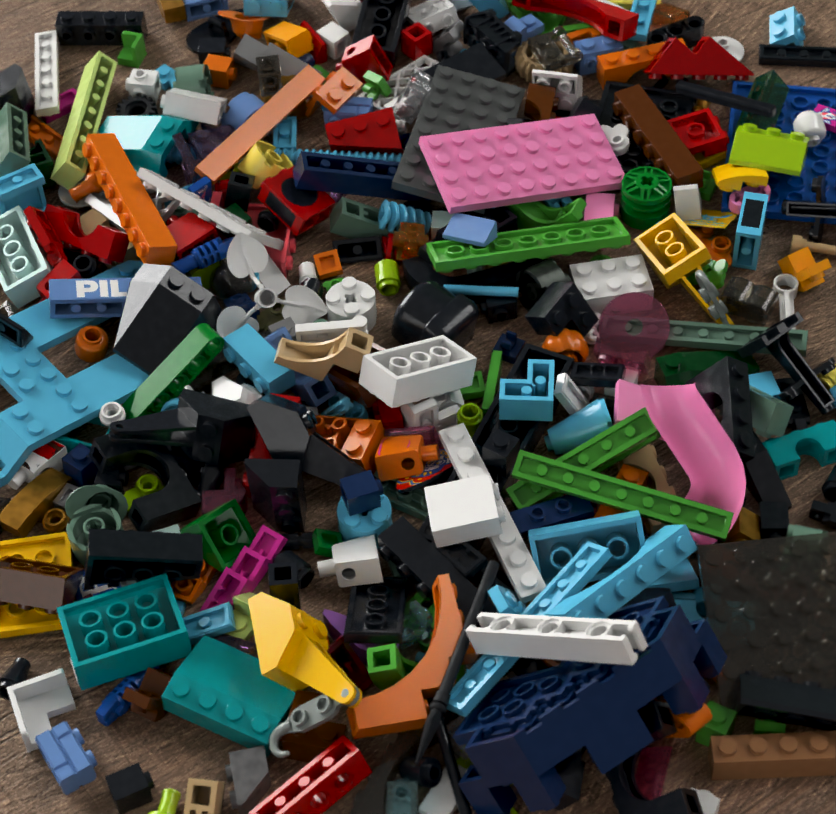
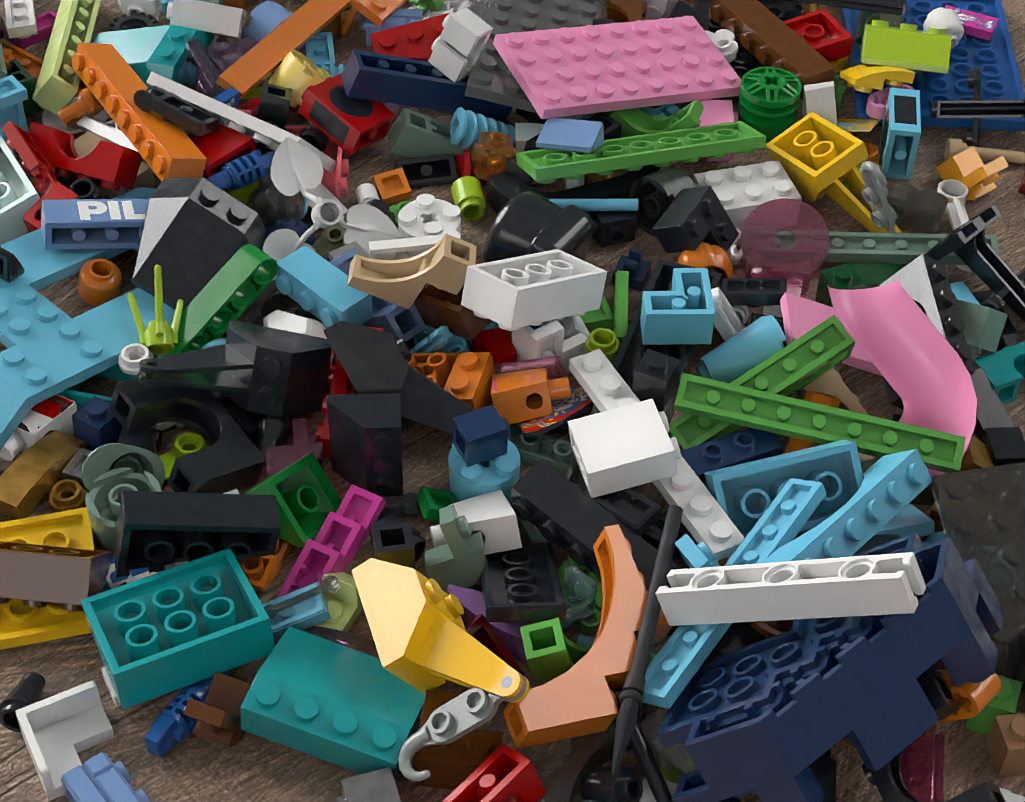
camera: 10 degrees left, 5 degrees down
(130, 396) = (158, 335): none -> lime plant
(158, 201) = (177, 110): none -> black hinge
(235, 605) = (329, 584): none -> clear smoke hinge
(335, 587) = (461, 558): none -> sand green brick
(388, 146) = (459, 44): none -> white piece

